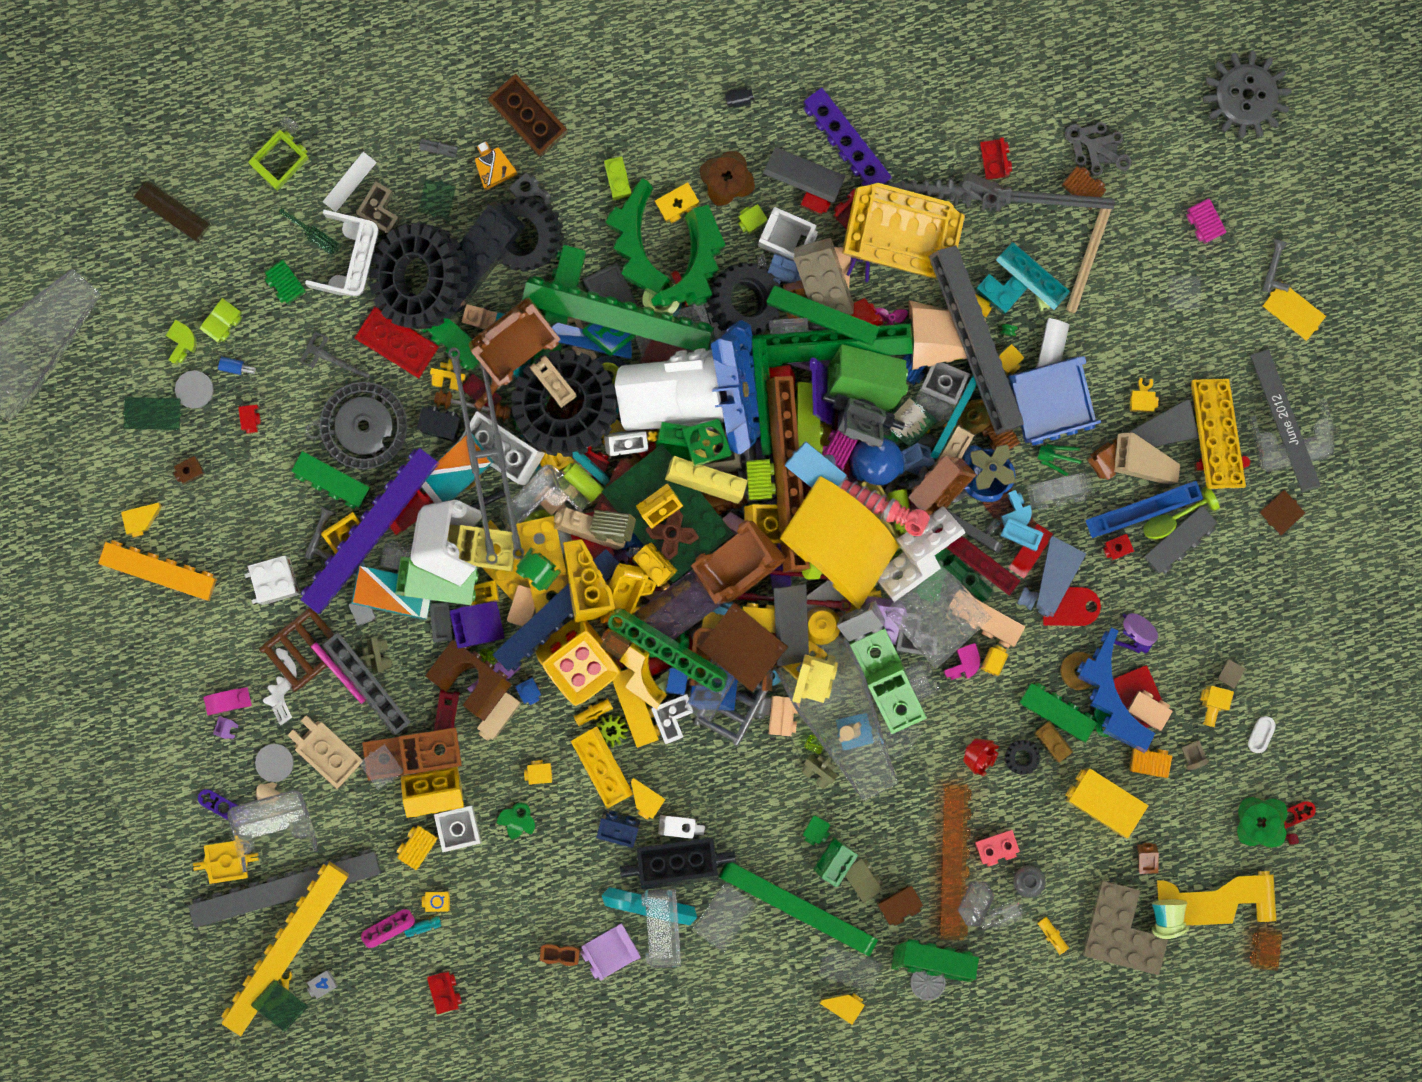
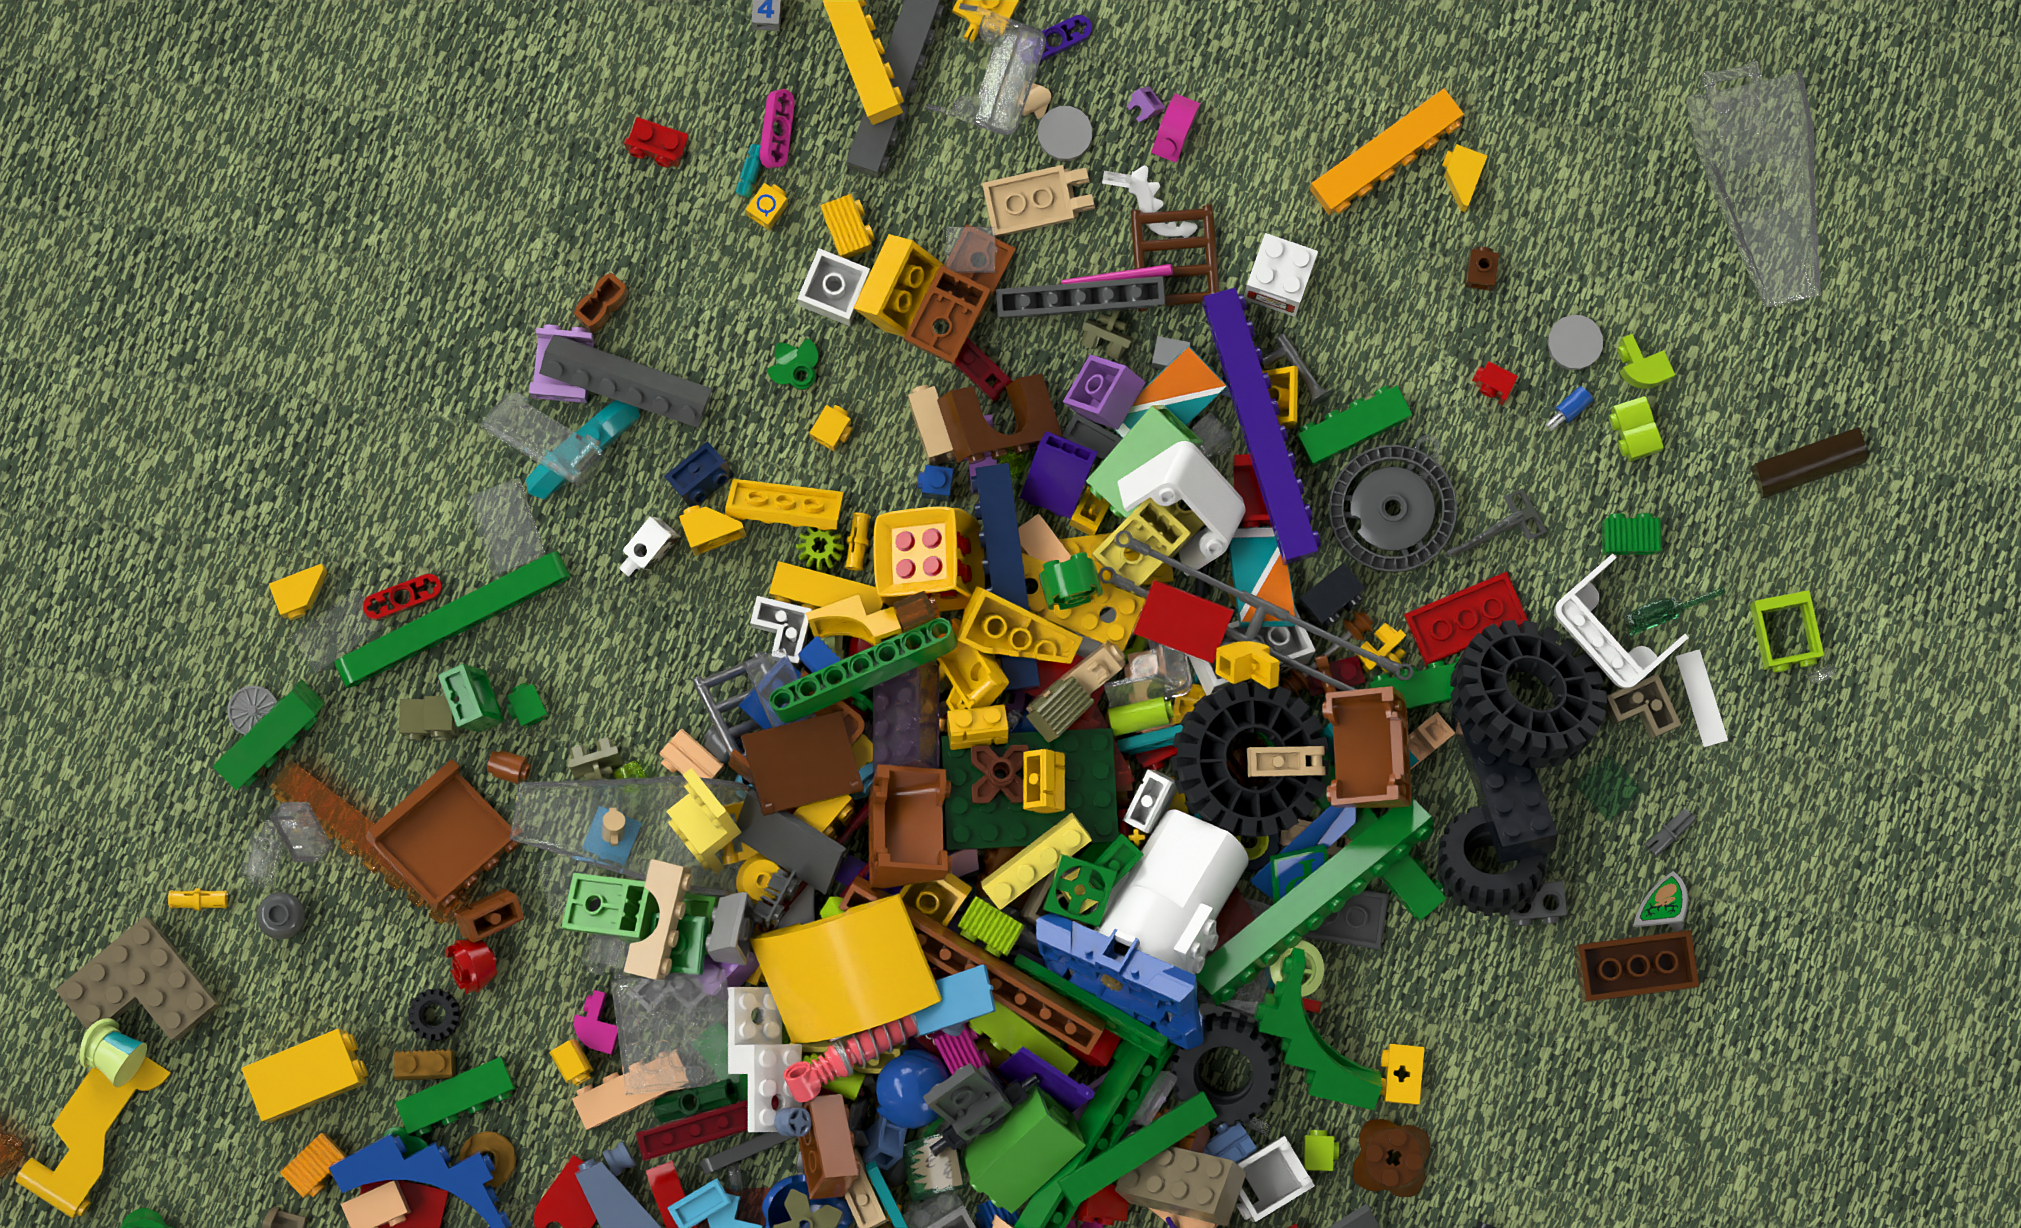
camera: 125 degrees right, 5 degrees down
(152, 413) = (1580, 274): clear green piece -> none
(411, 632) = (1104, 391): none -> medium lavender brick
(481, 124) = (1664, 904): none -> shield
(493, 166) = (1602, 881): light orange torso -> none
(511, 442) = (1246, 661): none -> yellow brick
(514, 493) = (1183, 621): none -> red tile
(595, 907) = (625, 381): none -> dark grey brick
(617, 178) = (1483, 1022): lime brick -> none
(630, 245) = (1389, 978): green arch -> none
(677, 863) = (606, 513): black brick -> none
(796, 933) = (424, 597): none -> red beam
(817, 608) = (787, 890): none -> dark grey hinge
(857, 816) = (508, 766): none -> dark orange brick
(862, 673) = (668, 885): none -> tan arch
(890, 646) = (690, 948): none -> green tile
(900, 905) = (365, 740): reddish brown brick -> none
(923, 822) = (442, 837): none -> dark orange panel
(942, 512) = (798, 1117): none -> sand blue wheel
(947, 765) = (489, 915): none -> dark orange brick
(997, 847) = (349, 906): coral brick -> none
(1148, 858) = (204, 1079): dark orange bracket -> none

